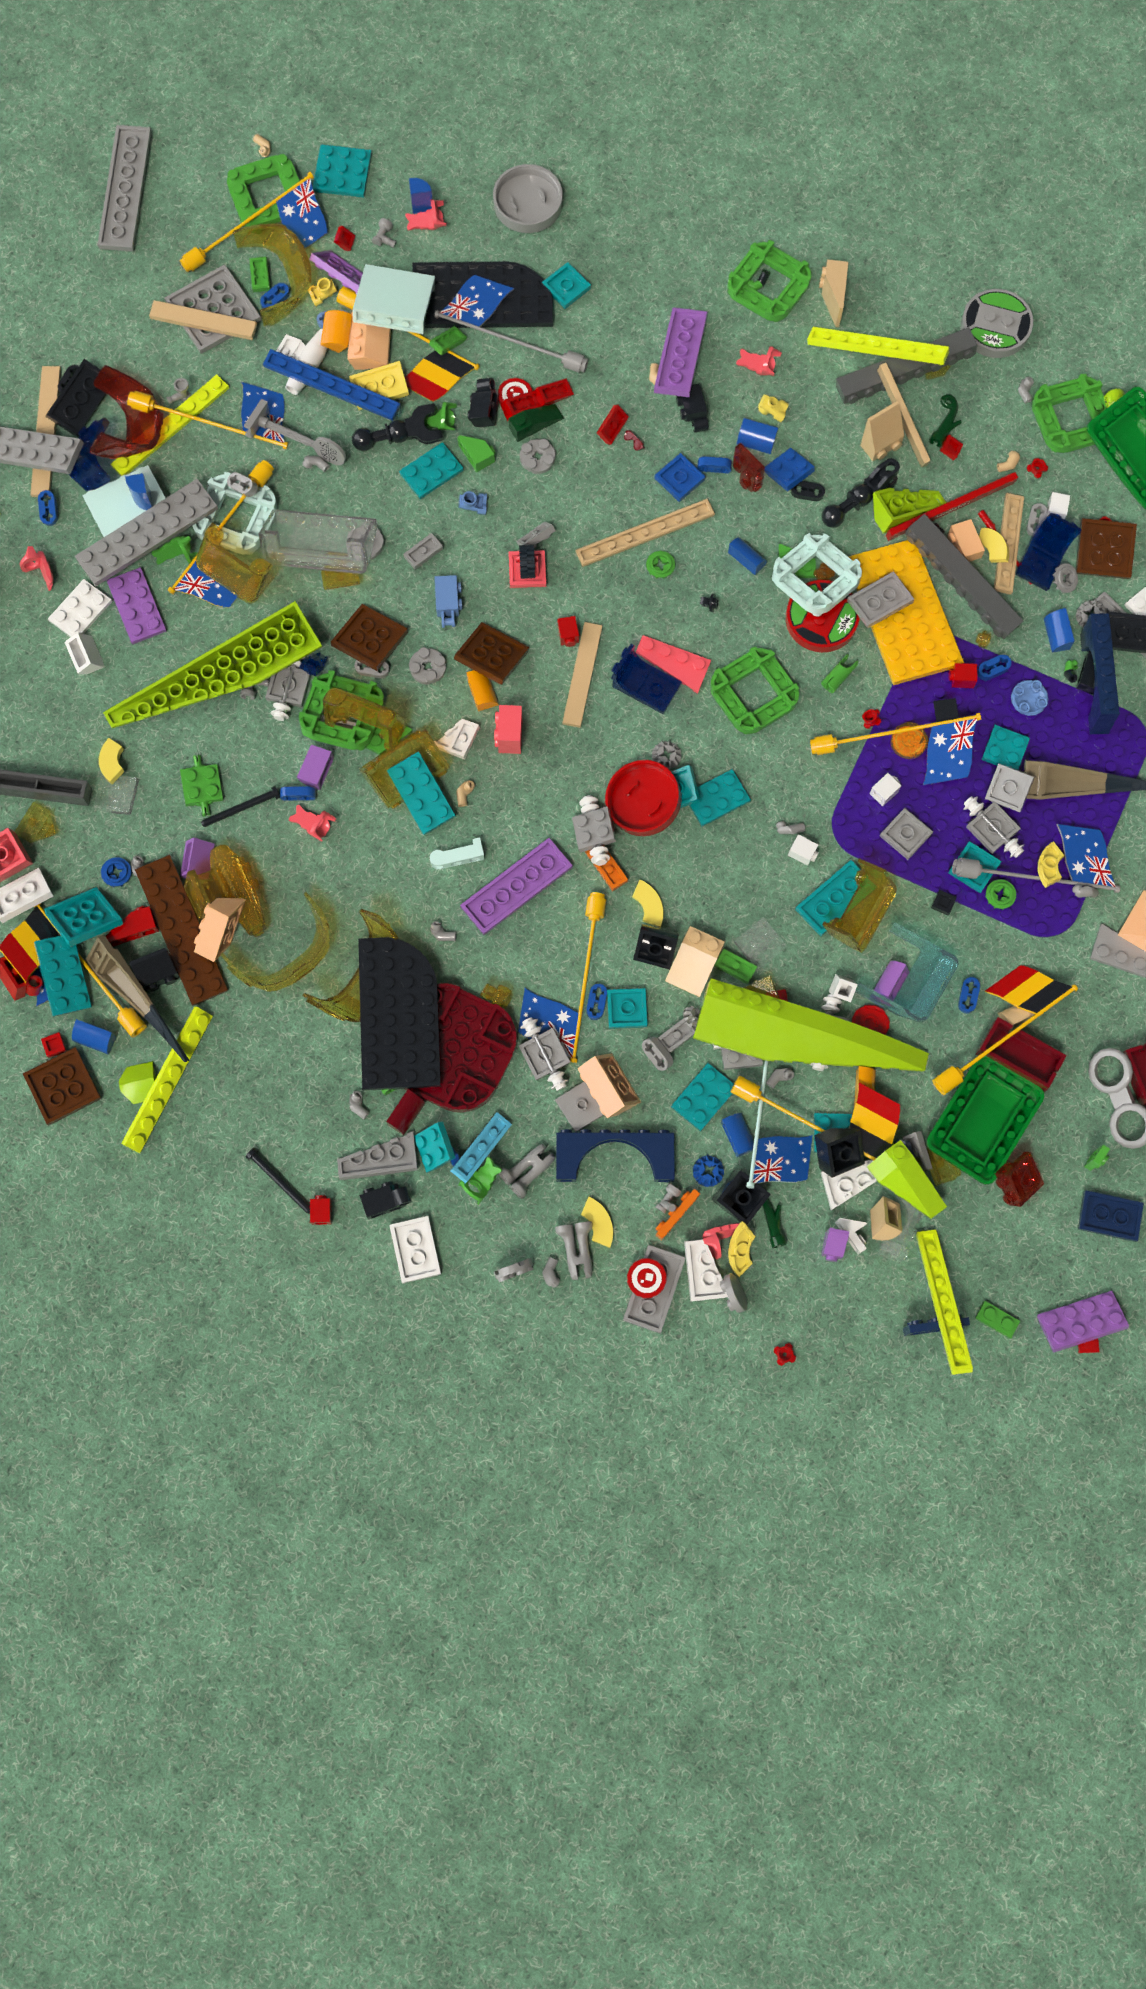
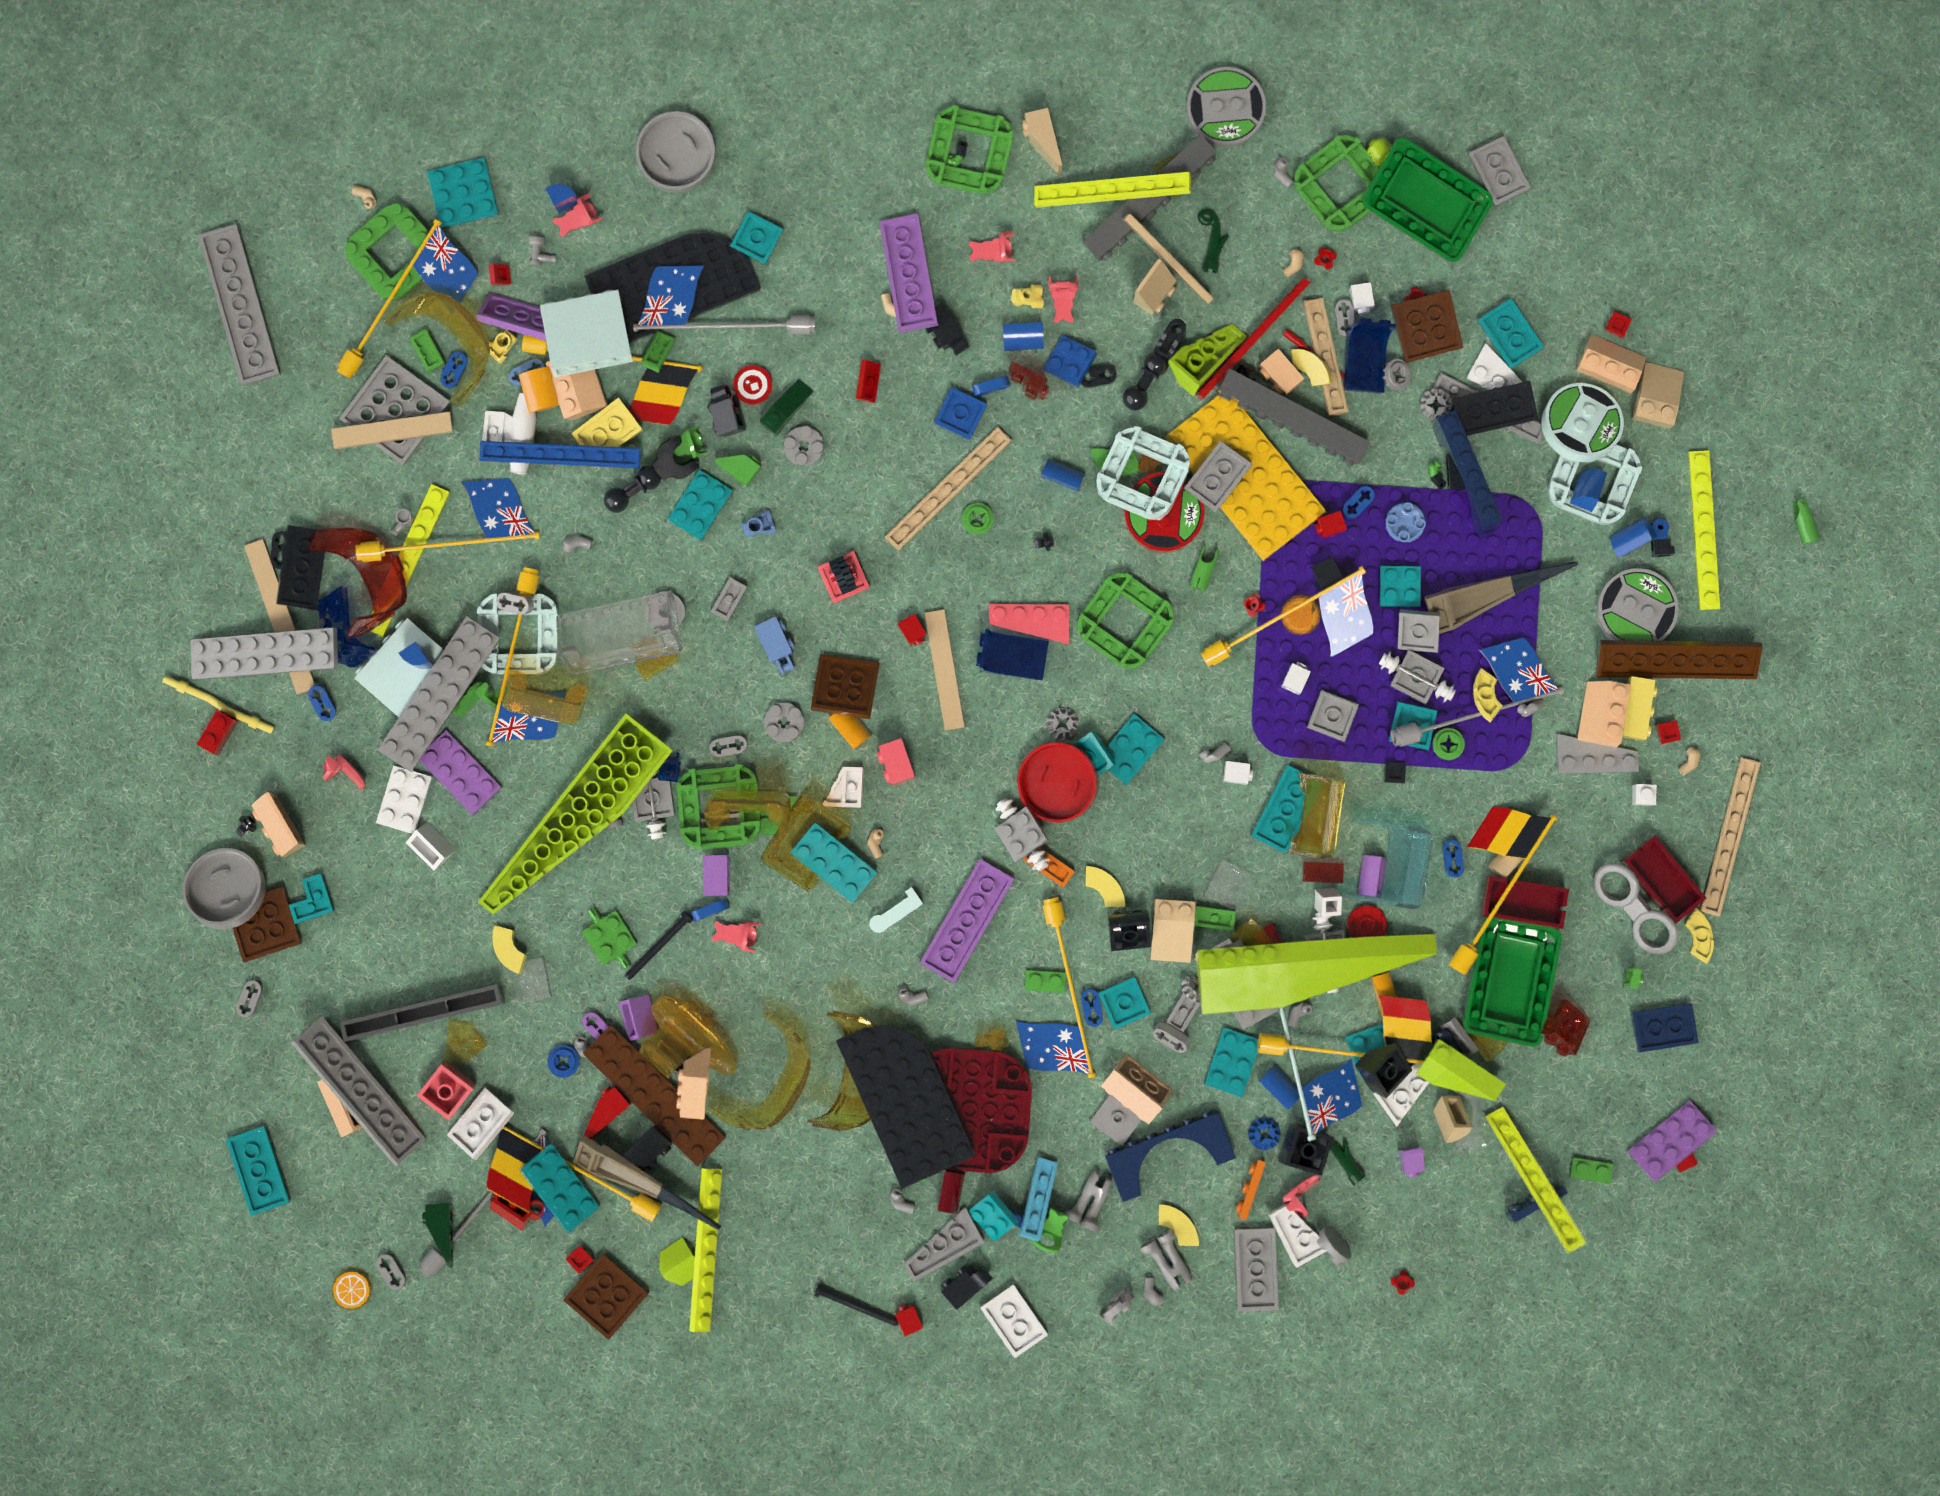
camera: 15 degrees left, 10 degrees up
(83, 916) = (554, 1123): teal plate -> none
(93, 1037) = (615, 1236): blue brick -> none
(162, 852) = (591, 1029): none -> medium lavender beam
(324, 447) = (500, 522): light grey piece -> none
(369, 637) = (713, 716): reddish brown plate -> none
(538, 534) = (838, 537): light grey plate -> none
(540, 397) = (778, 383): red slope -> none
(544, 1054) = (1062, 1081): light grey plate -> none
(564, 963) = (1045, 981): none -> bright green plate
(638, 444) = (902, 391): dark red piece -> none
(646, 1278) = (1245, 1263): red tile -> none
(665, 1204) = (1235, 1184): light grey piece -> none
(739, 1249) = (1323, 1200): light yellow tile -> none
(803, 417) = (1063, 296): none -> coral hair
(848, 963) = (1323, 872): none -> clear red plate
(856, 1241) = (1420, 1139): white slope -> none
(951, 447) = (1228, 270): red plate -> none
(983, 639) = (1336, 474): clear yellow plate -> none
(1059, 630) = (1409, 436): blue brick -> none

